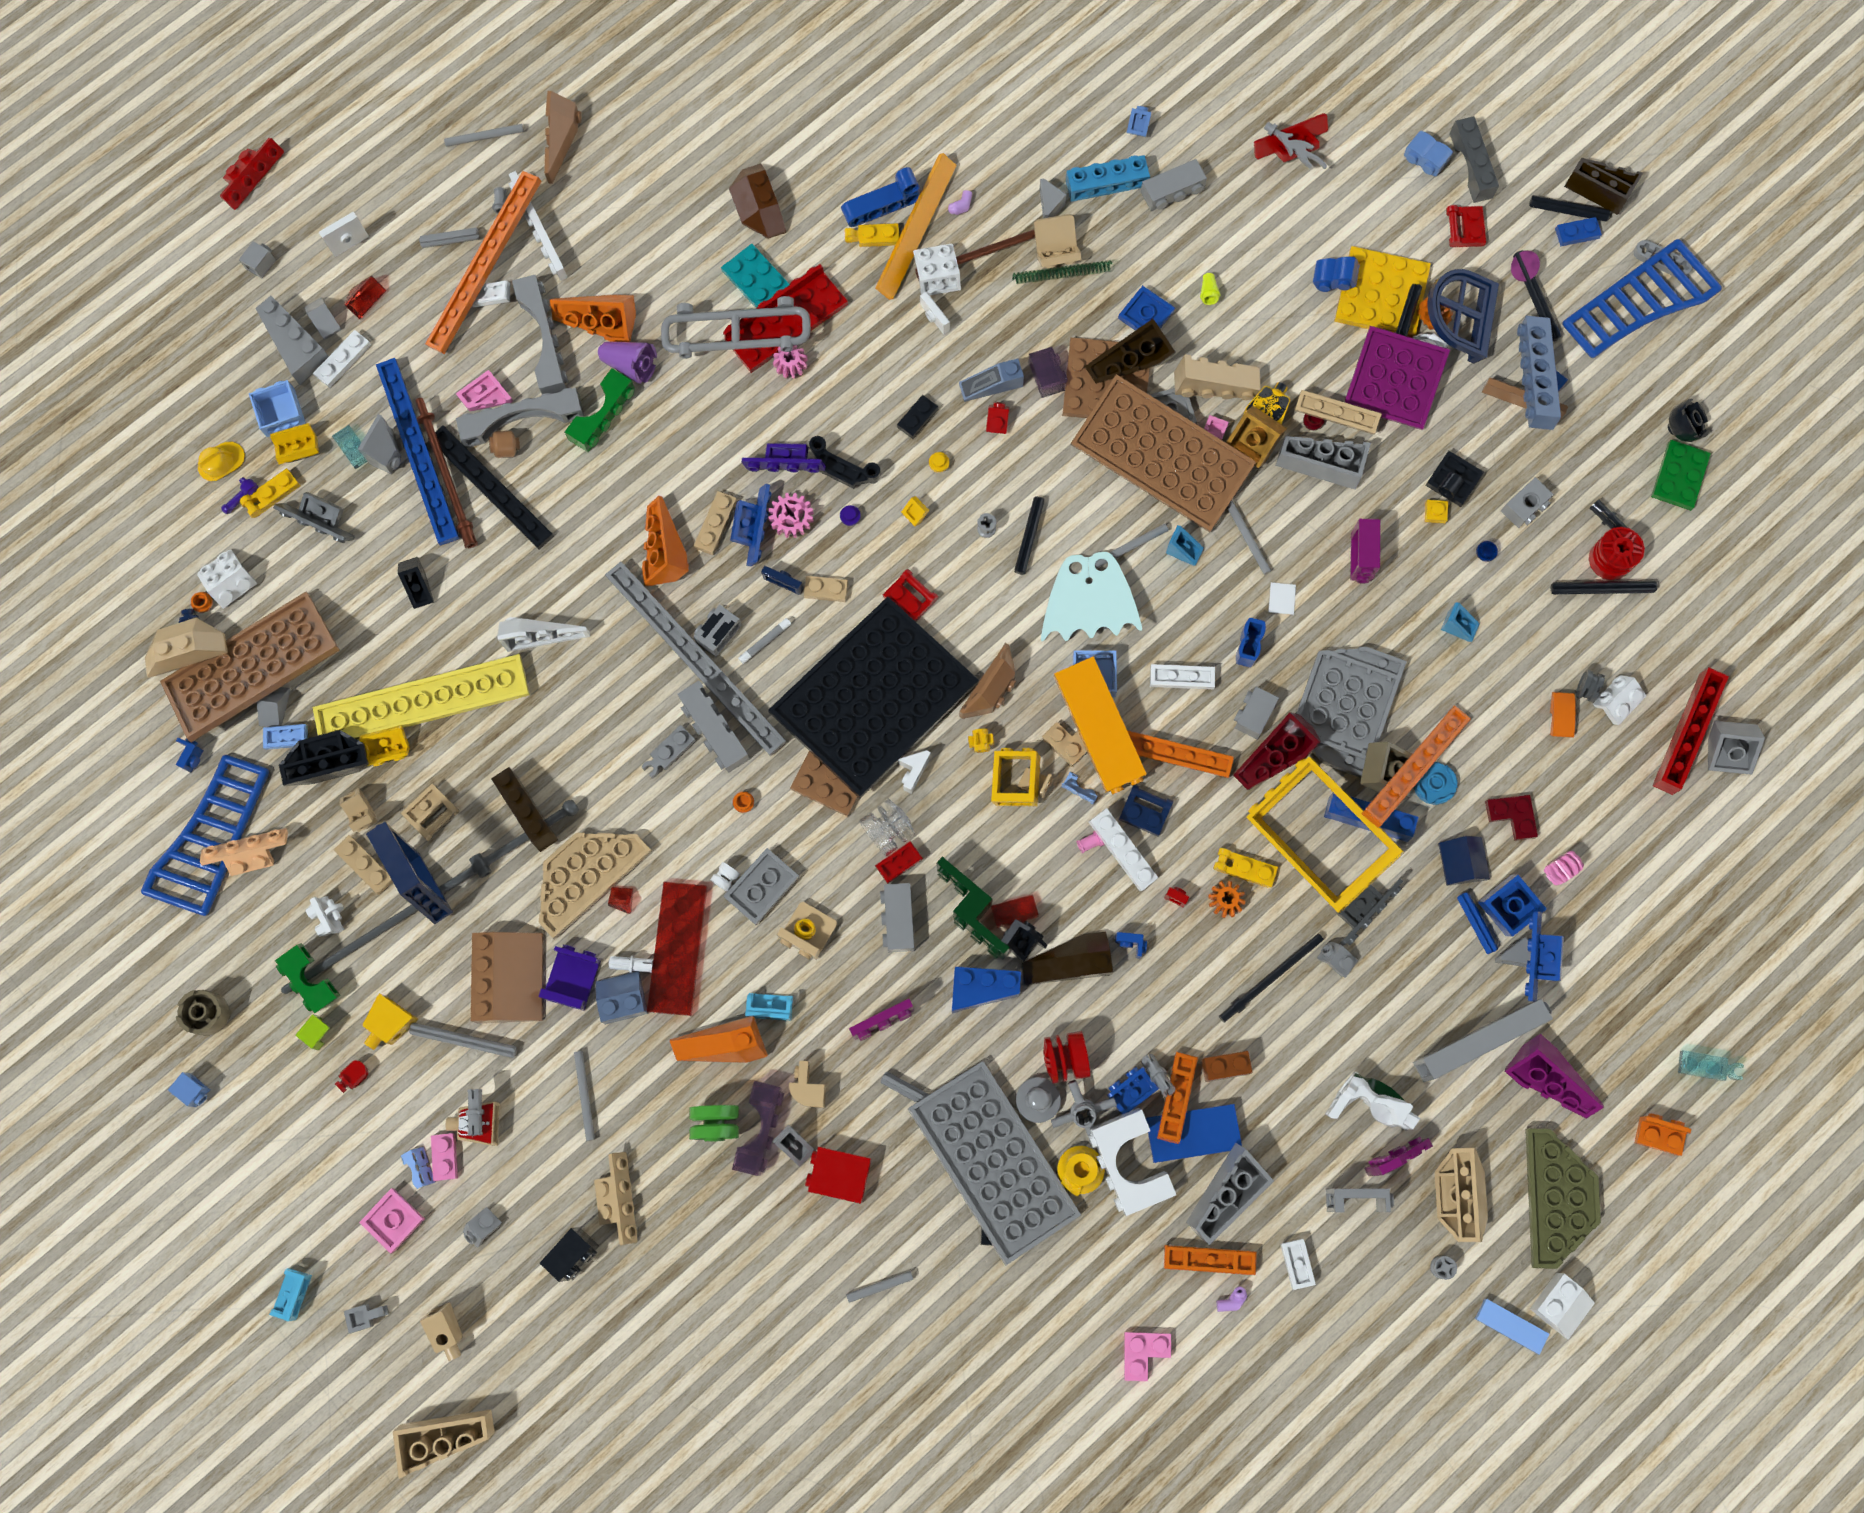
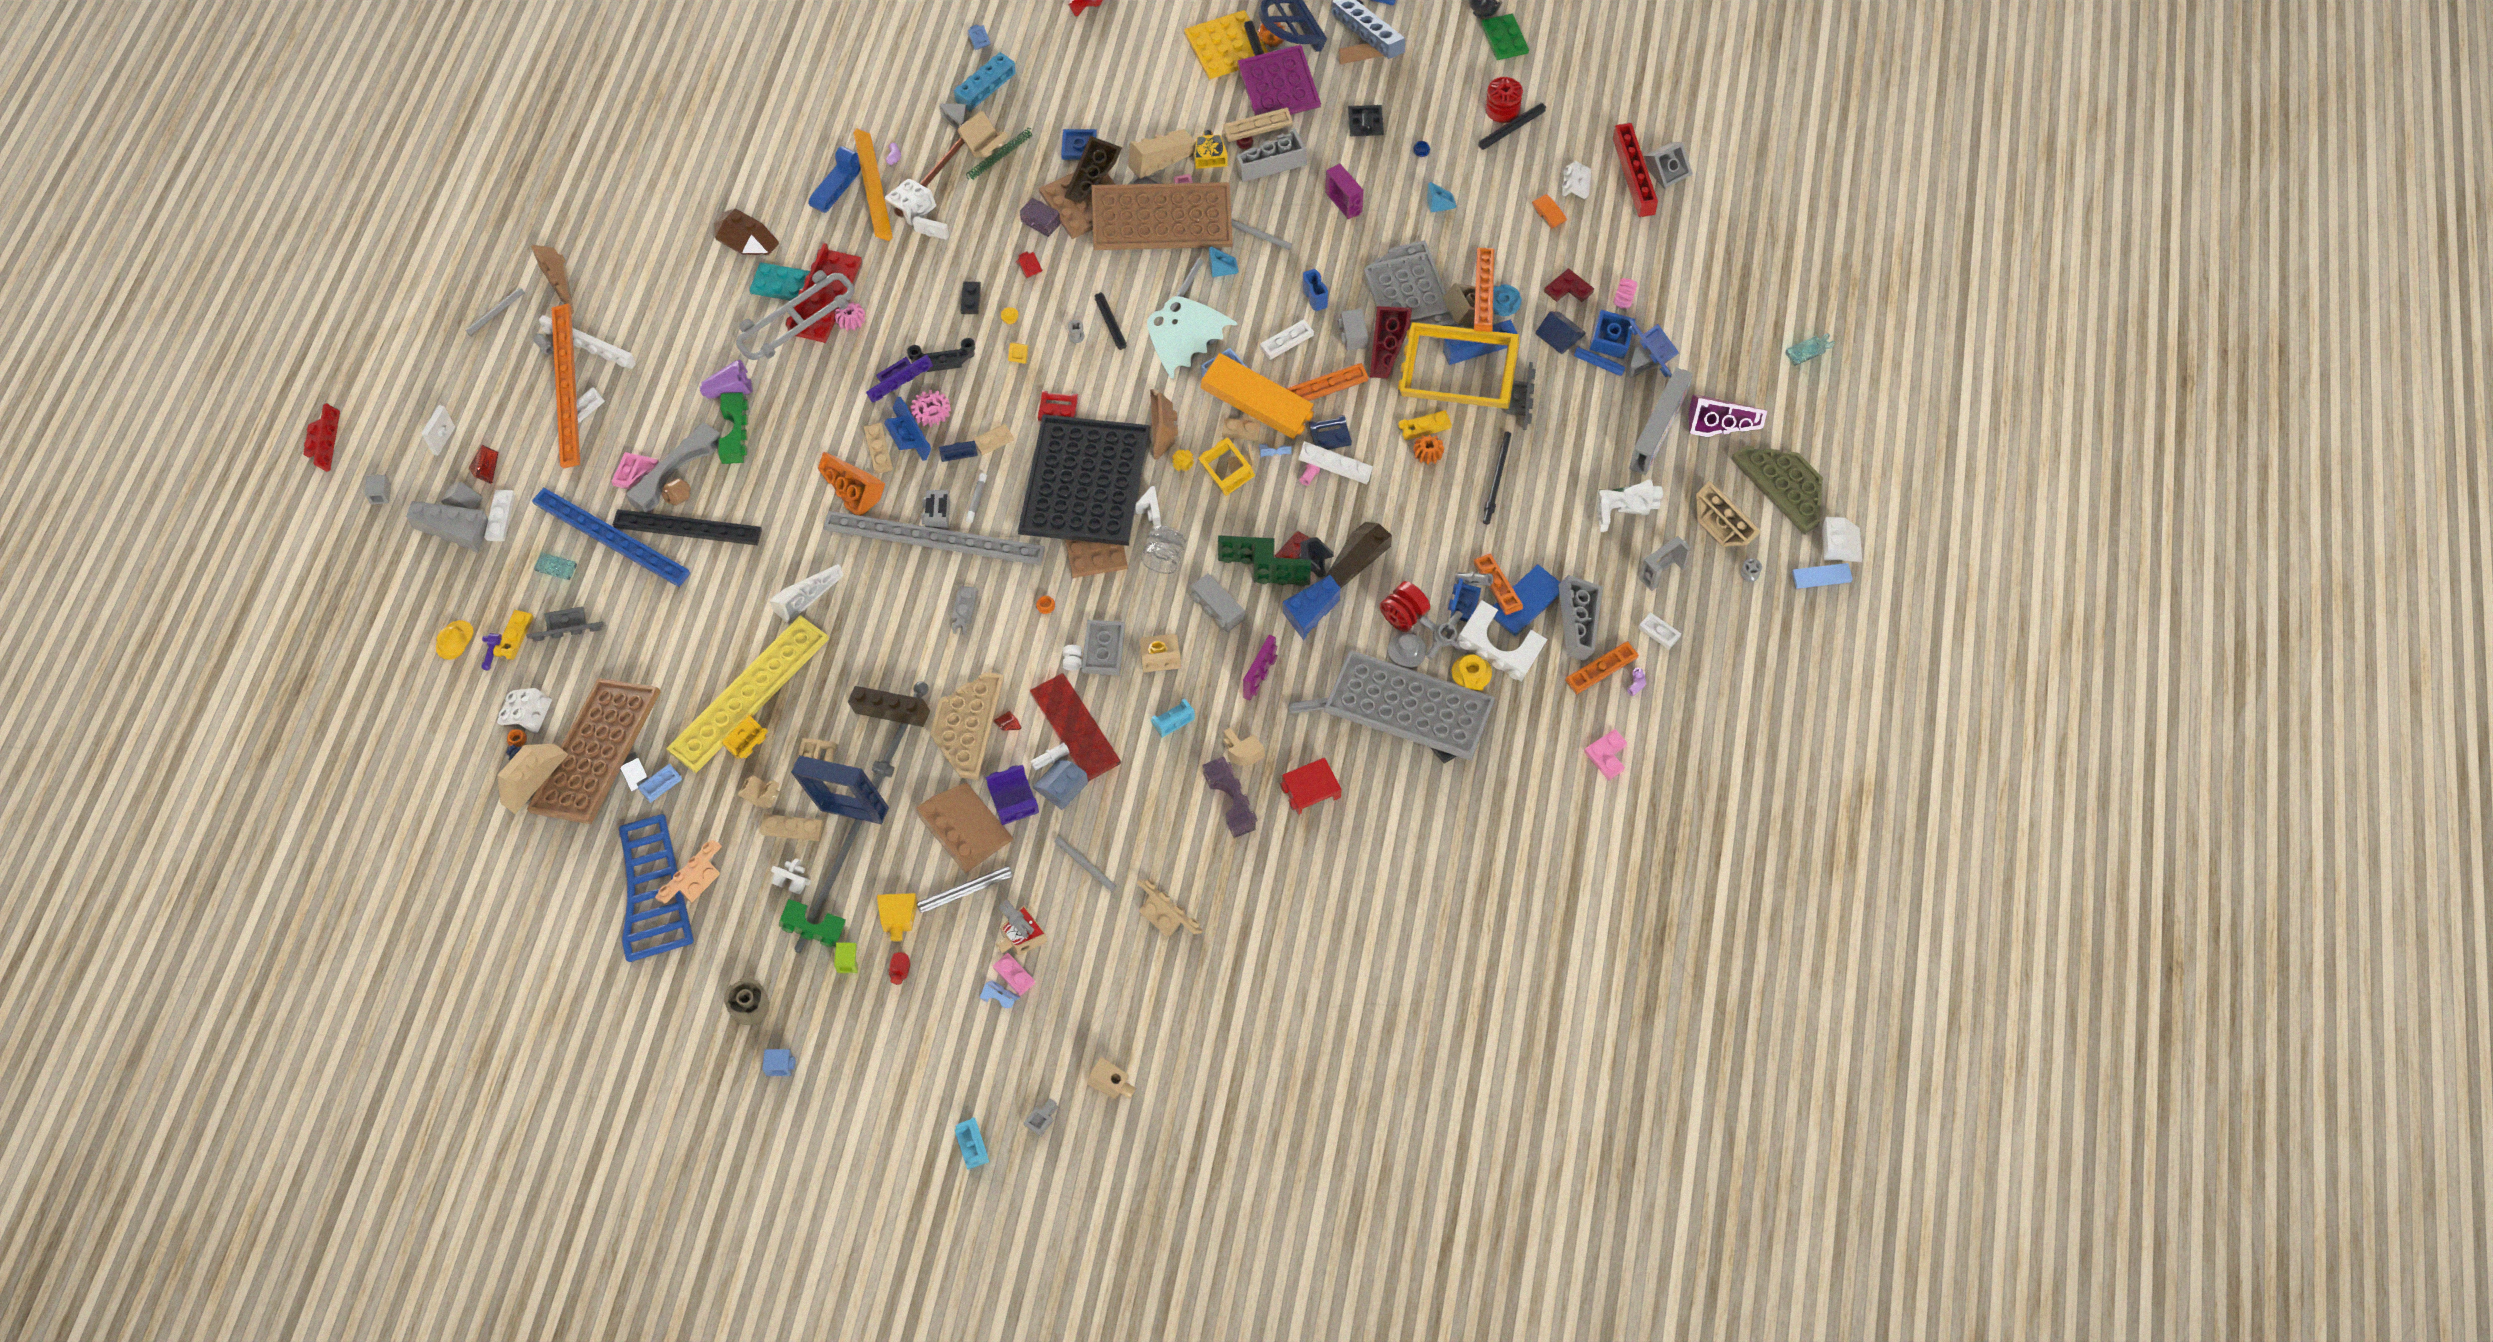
camera: 40 degrees left, 15 degrees down
(190, 756) = (592, 839): blue bracket -> none
(276, 407) = (474, 575): light blue piece -> none
(295, 443) = (508, 588): yellow bracket -> none
(323, 759) = (707, 772): black wedge -> none
(380, 446) = (583, 548): light grey slope -> none
(392, 1220) = (1009, 1040): bright pink plate -> none
(415, 582) = (680, 619): black slope -> none
(436, 1439) = (1163, 1156): tan wedge -> none
(449, 237) = (522, 389): light grey axle -> none
(464, 526) = (688, 562): copper bar -> none
(481, 1227) = (1080, 999): light grey bracket -> none
(548, 370) = (620, 390): light grey arch -> none
(569, 1255) = (1163, 963): black brick -> none
(601, 315) = (682, 370): orange wedge -> none
(713, 727) = (984, 569): light grey wedge -> none
(714, 1122) = (1196, 809): bright green wheel -> none
(728, 1042) = (1164, 756): orange wedge -> none
(794, 1145) = (1262, 789): light grey slope -> none
(850, 515) = (973, 384): dark purple plate -> none
(873, 235) = (845, 208): yellow plate -> none
(880, 1286) = (1397, 838): light grey bar -> none
(899, 862) = (1188, 570): red plate -> none
(994, 380) = (1007, 243): sand blue slope -> none
(1127, 940) = (1386, 513): blue bracket -> none
(1173, 185) = (1034, 60): light grey brick -> none
(1177, 896) = (1394, 469): red plate -> none
(1209, 291) = (1111, 107): neon yellow cone -> none
(1226, 1066) = (1513, 545): dark orange brick -> none
(1256, 435) = (1216, 167): pearl gold brick -> none
(1282, 598) = (1312, 256): white sticker -> none
(1336, 273) = (1188, 48): blue brick -> none
(1337, 958) = (1530, 436): light grey bracket -> none
(1397, 1157) = (1665, 523): magenta plate -> none
(1436, 511) = (1369, 146): yellow plate -> none
(1534, 493) = (1423, 106): light grey brick -> none
(1590, 685) = (1551, 183): dark grey wheel -> none
(1598, 508) = (1481, 85): black pin -> none
(1661, 1134) = (1815, 405): orange bracket -> none

